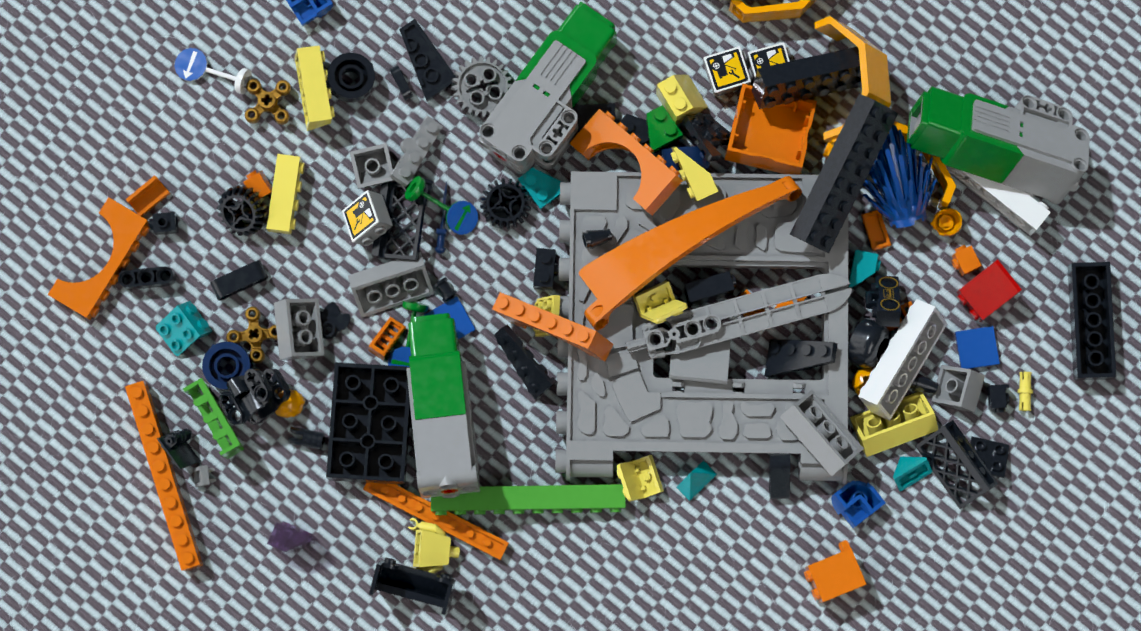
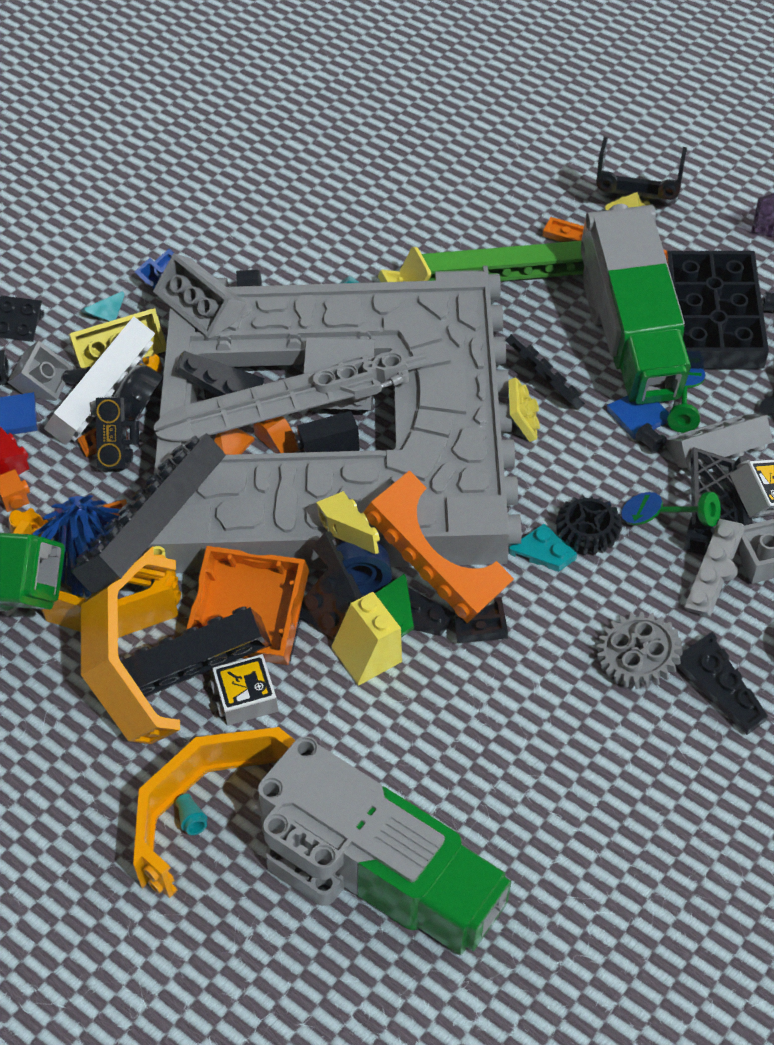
camera: 175 degrees right, 30 degrees down
(392, 341) = (716, 379): orange slope -> none
(401, 82) = (750, 653): black beam -> none
(441, 232) = (666, 495): dark blue sword -> none
(526, 315) = (483, 346): orange arch -> none
(535, 111) = (554, 624): light grey piece -> none
(545, 269) = (530, 459): black brick -> none
(595, 238) = (470, 459): black cone -> none
(635, 263) = (407, 427): orange panel -> none
(658, 303) = (386, 395): light yellow bracket -> none
(727, 71) = (304, 682): piece -> none
(835, 574) = (194, 213): orange container -> none
(863, 267) = (135, 475): teal slope -> none
(966, 457) = (48, 302): black fence -> none

